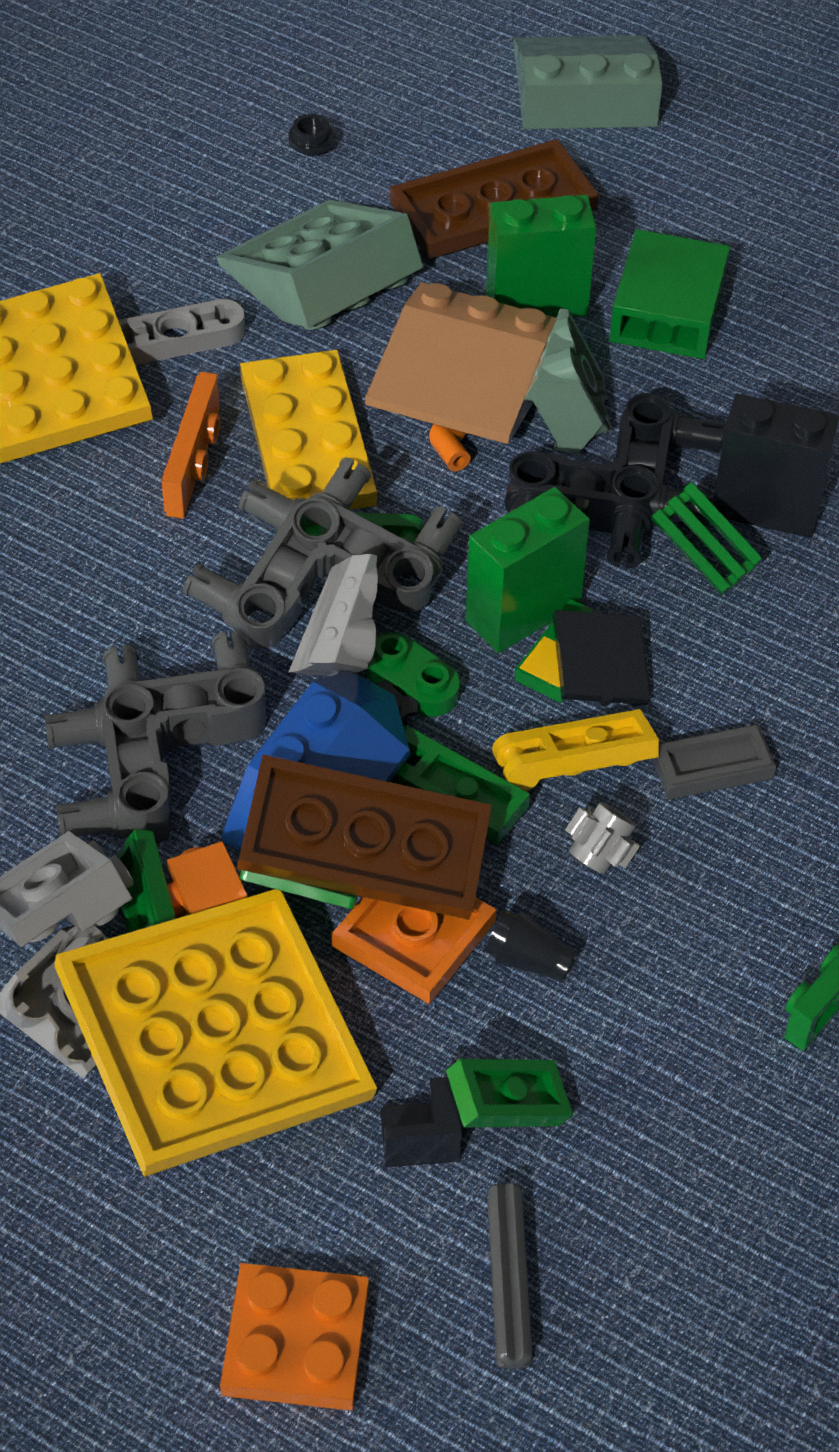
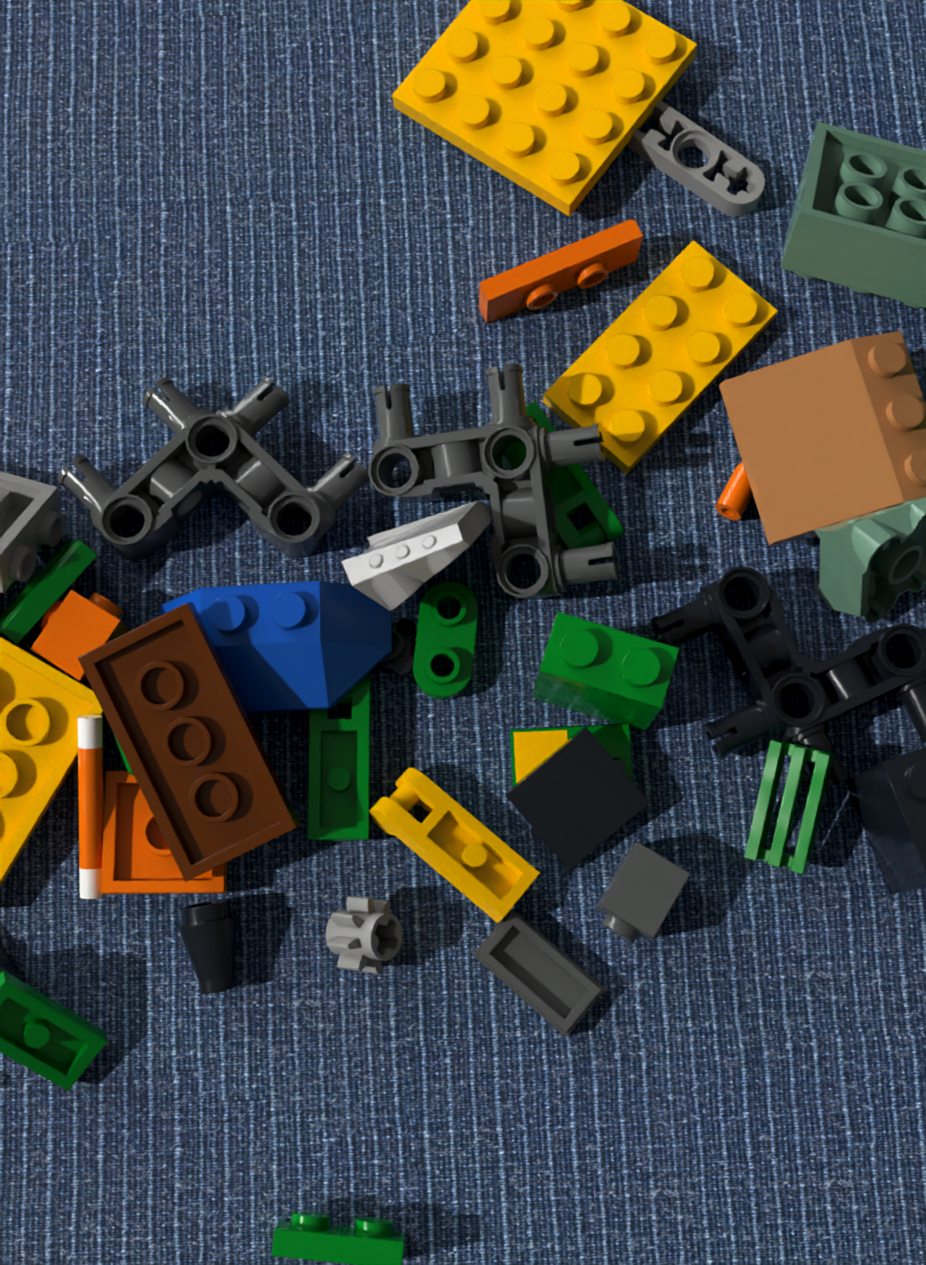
camera: 55 degrees right, 25 degrees up
(353, 957) = (90, 804): none -> orange bar
(702, 658) = (640, 894): none -> dark grey brick

